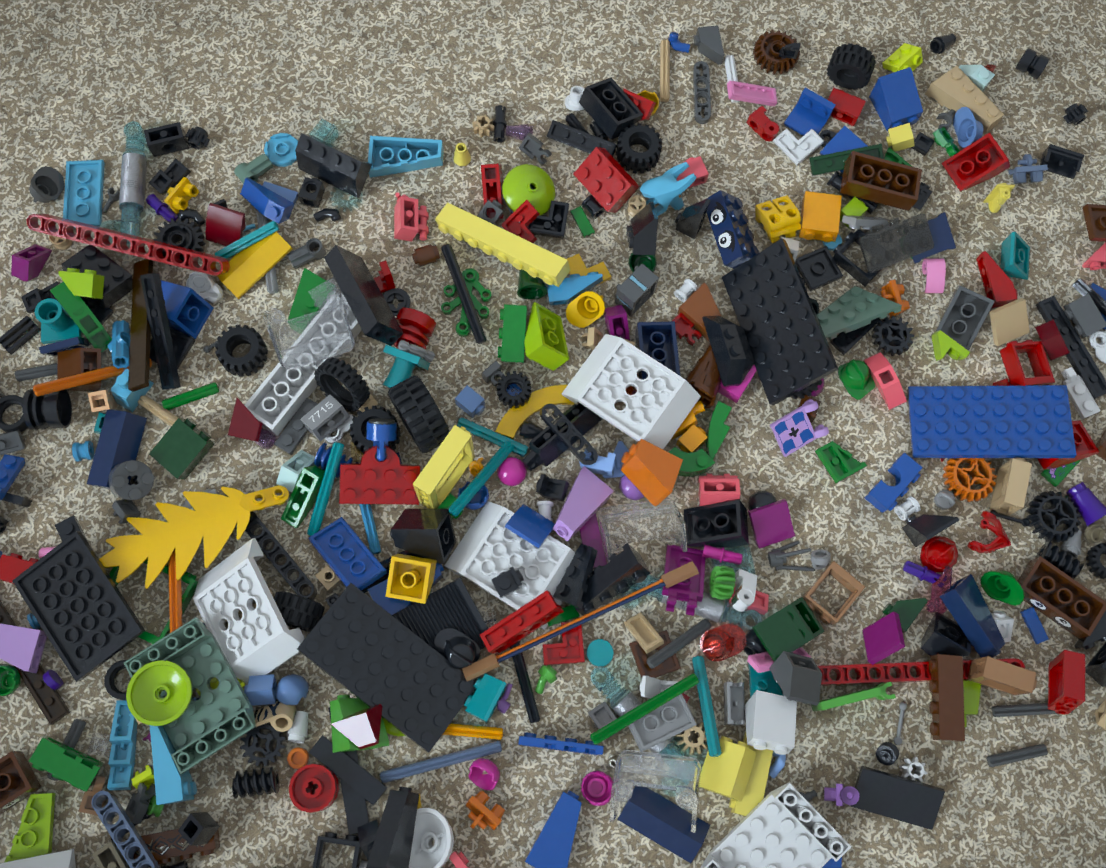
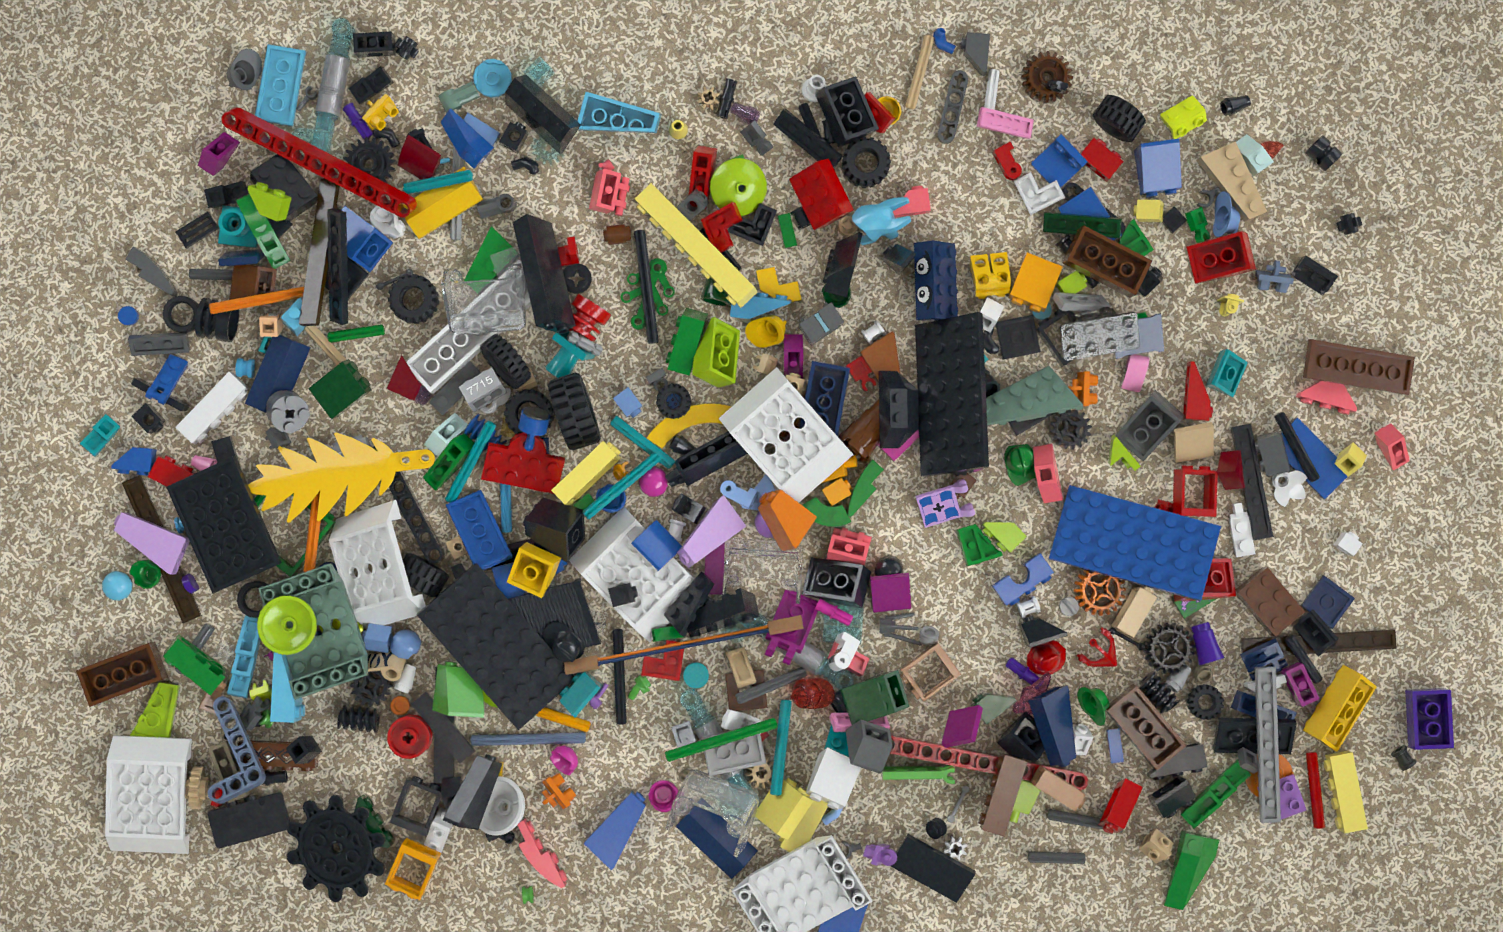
camera: 15 degrees right, 15 degrees up
(54, 496) = (212, 408): none -> white brick
(120, 344) = (296, 268): dark azure piece -> none
(362, 727) = (462, 697): slope -> none
(521, 623) = (626, 634): red fence -> none
(569, 744) = (612, 739): blue wing -> none
(570, 432) = (715, 463): black beam -> none
(722, 582) = (824, 640): bright green gear -> none
(734, 703) = (808, 751): light grey hinge -> none
(863, 443) = (1006, 534): none -> lime slope

